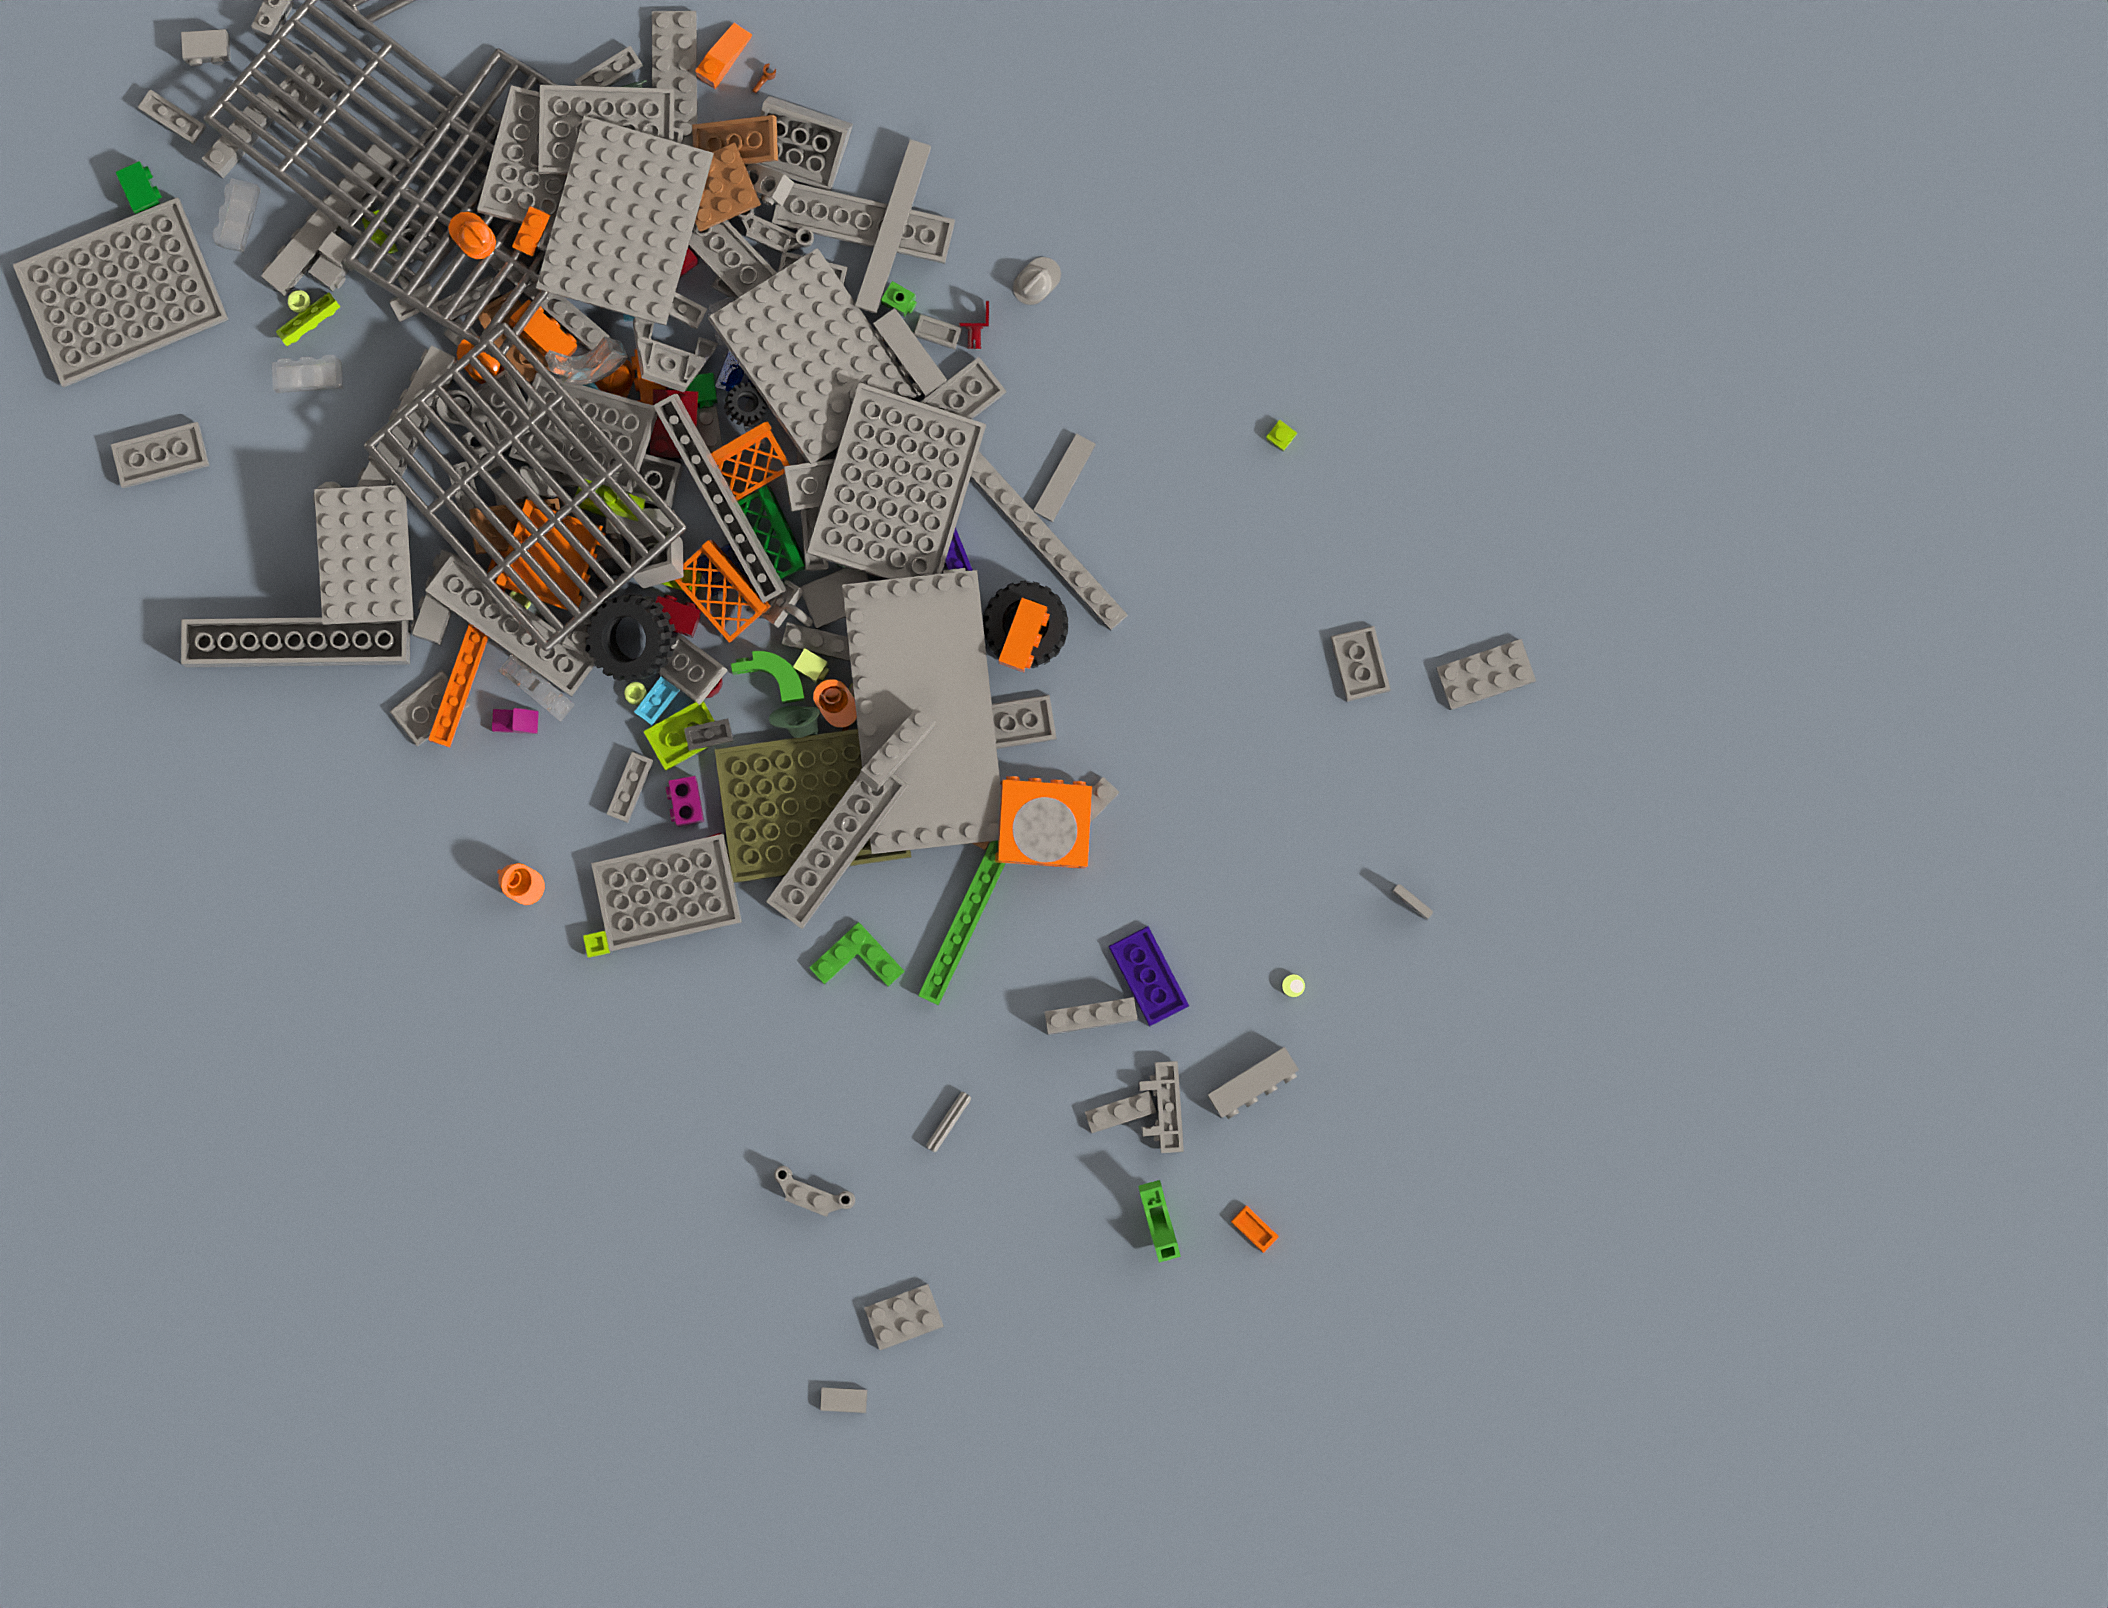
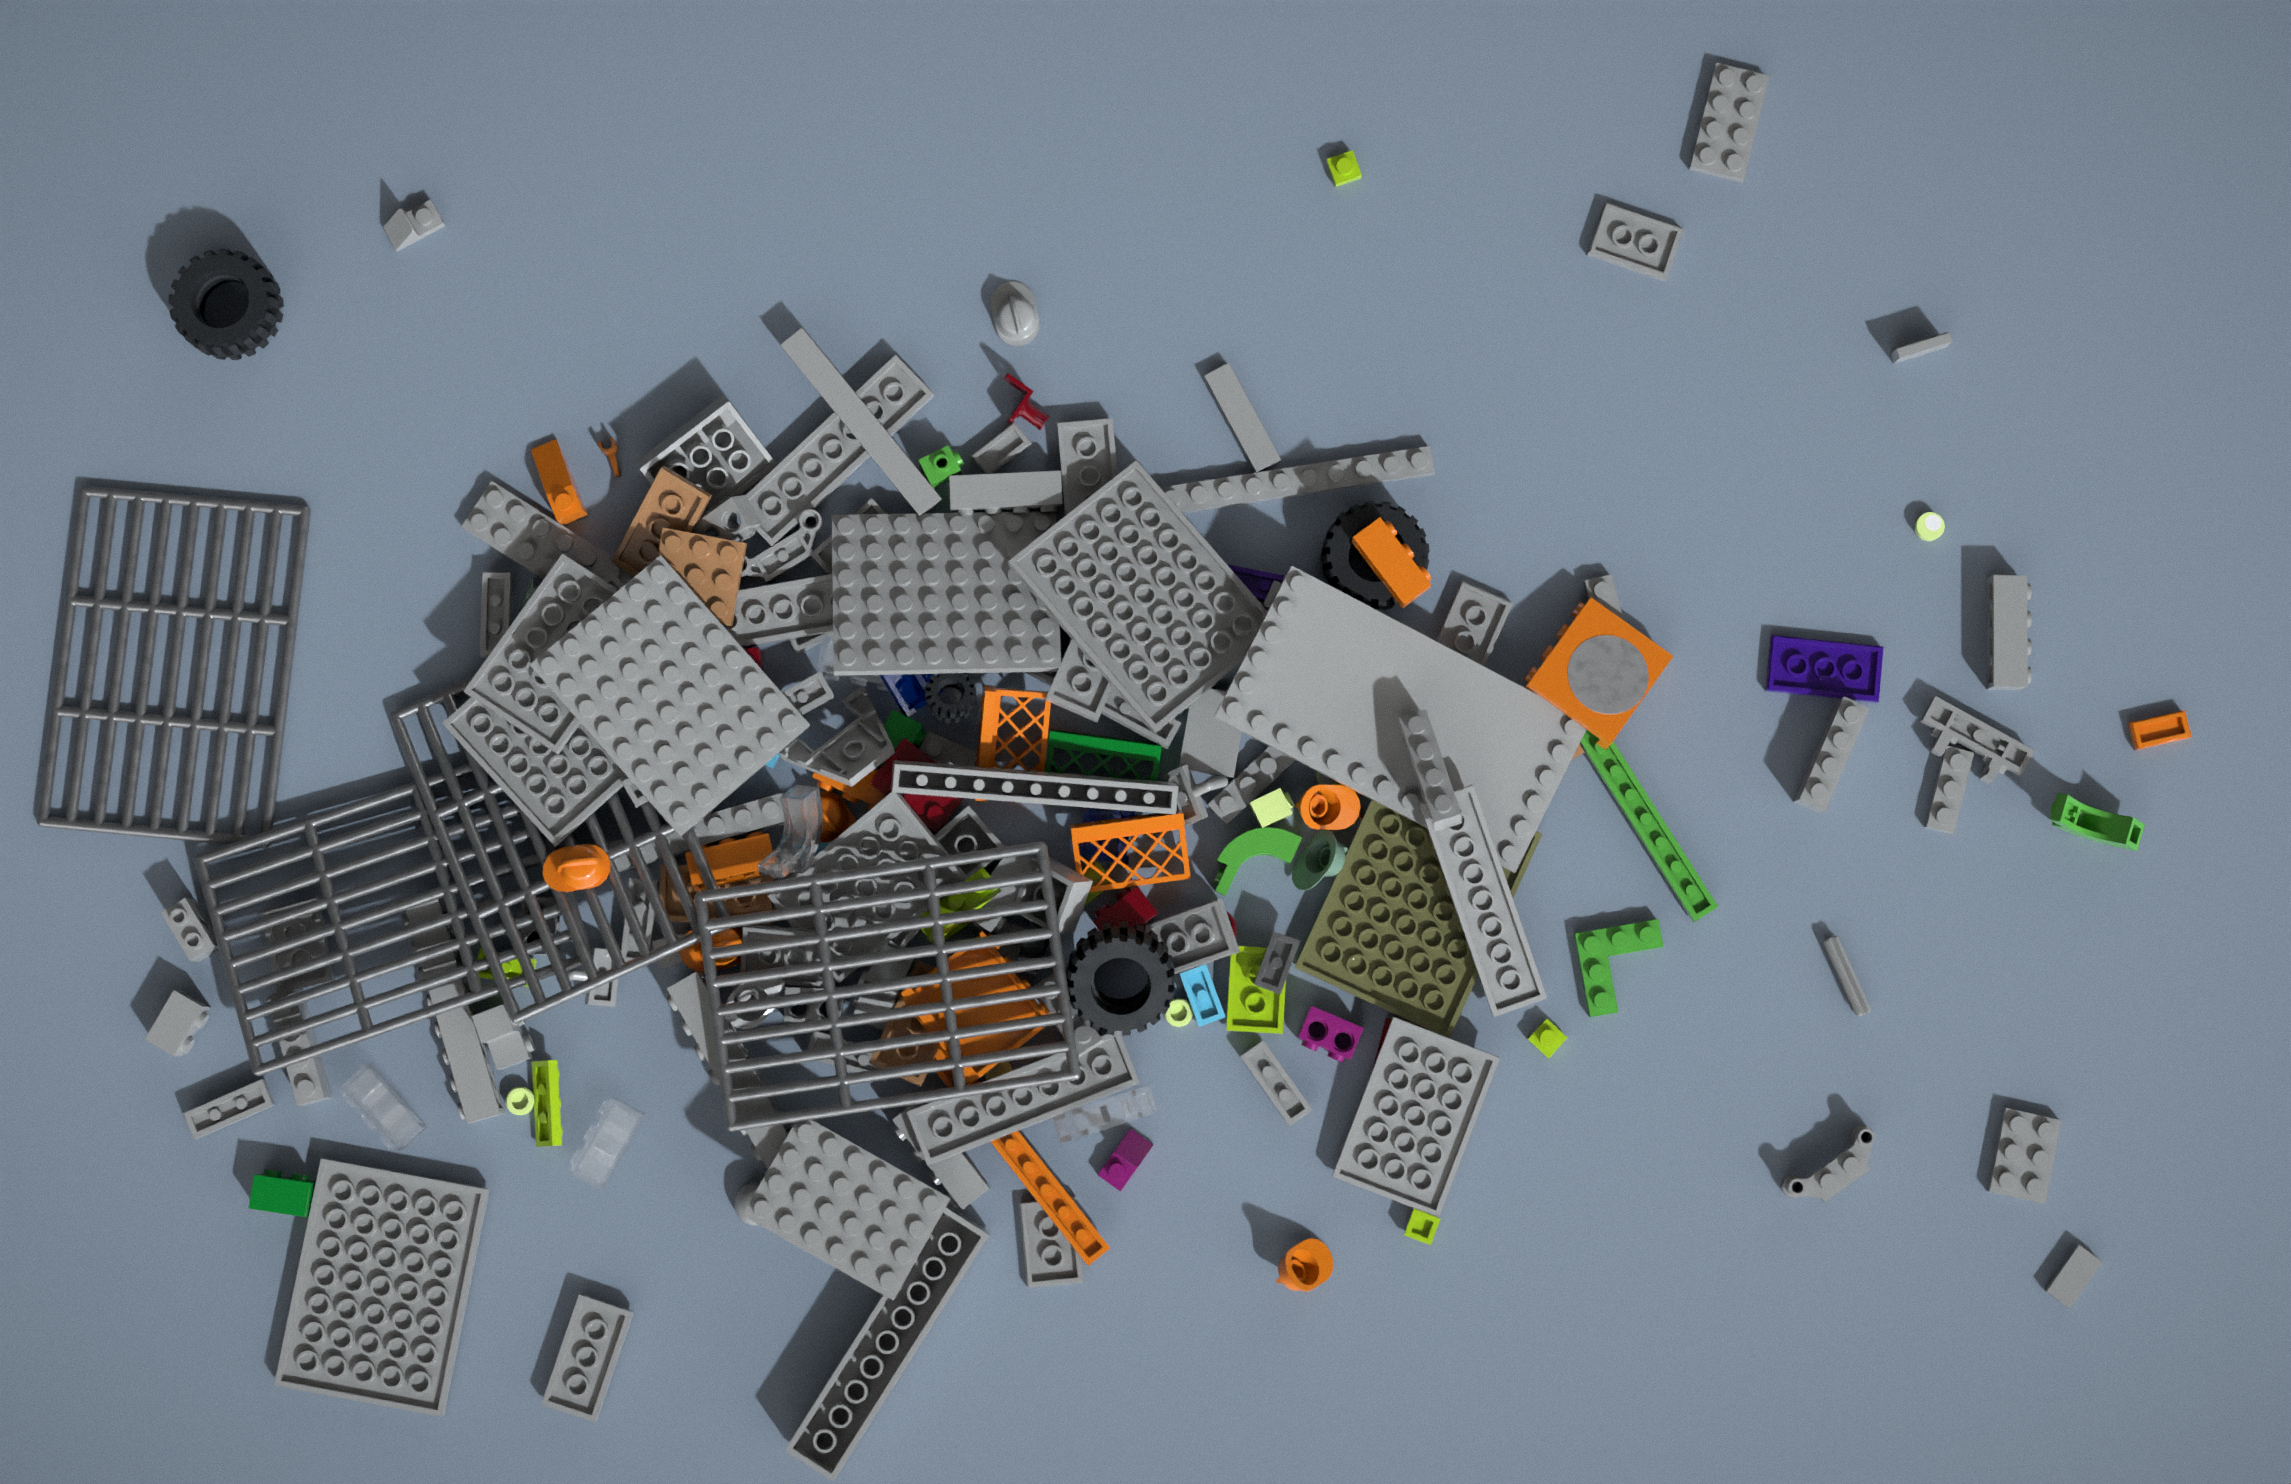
camera: 55 degrees left, 0 degrees up
(531, 230) = (614, 801): orange plate -> none
(776, 948) = (1547, 1038): none -> lime plate

